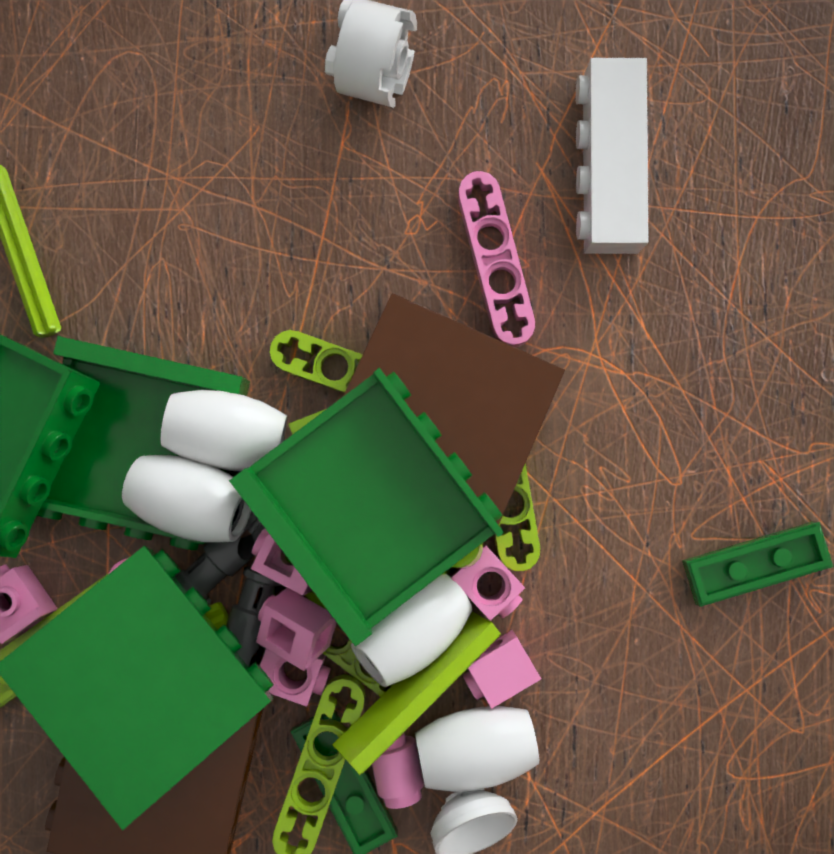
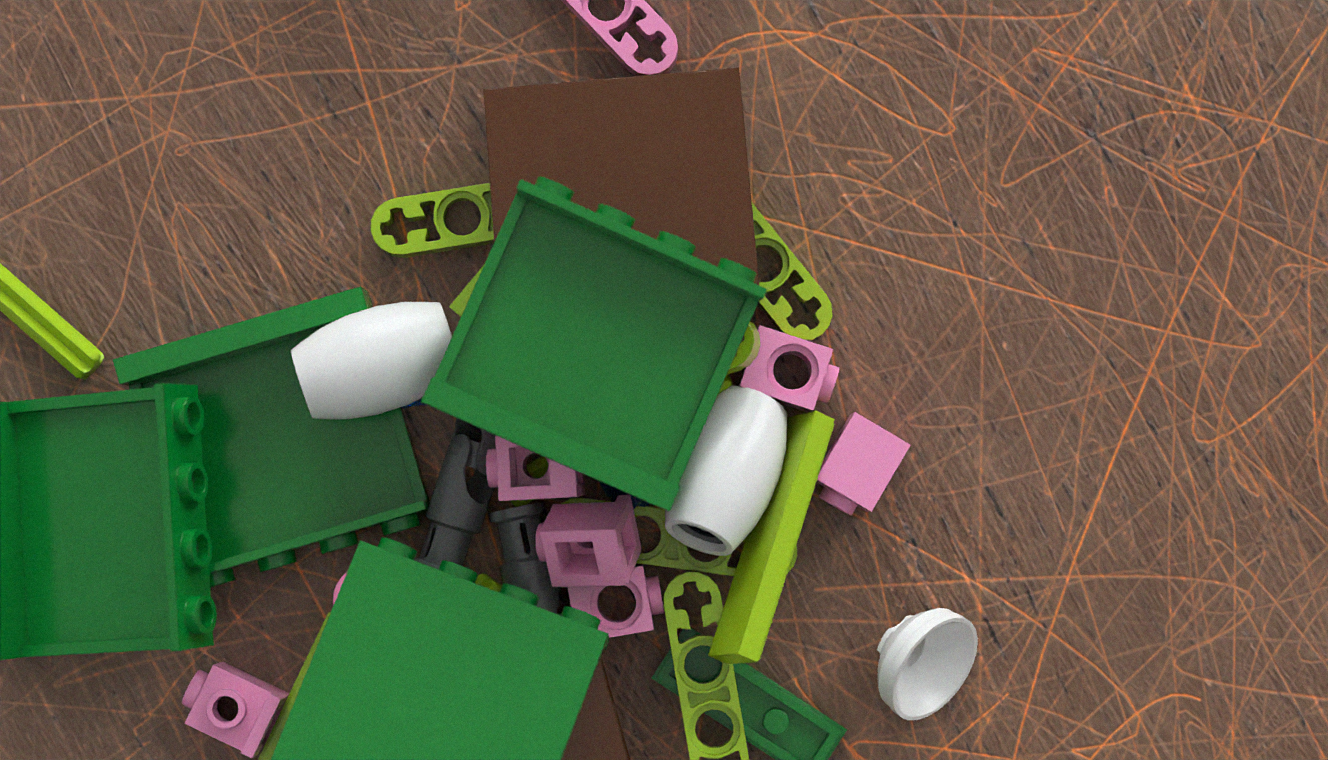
camera: 30 degrees left, 0 degrees up
(185, 498) = (377, 463): white piece -> none
(399, 774) = (804, 651): bright pink brick -> none
(477, 748) = (881, 569): white piece -> none
(757, 563) = (1096, 173): green tile -> none

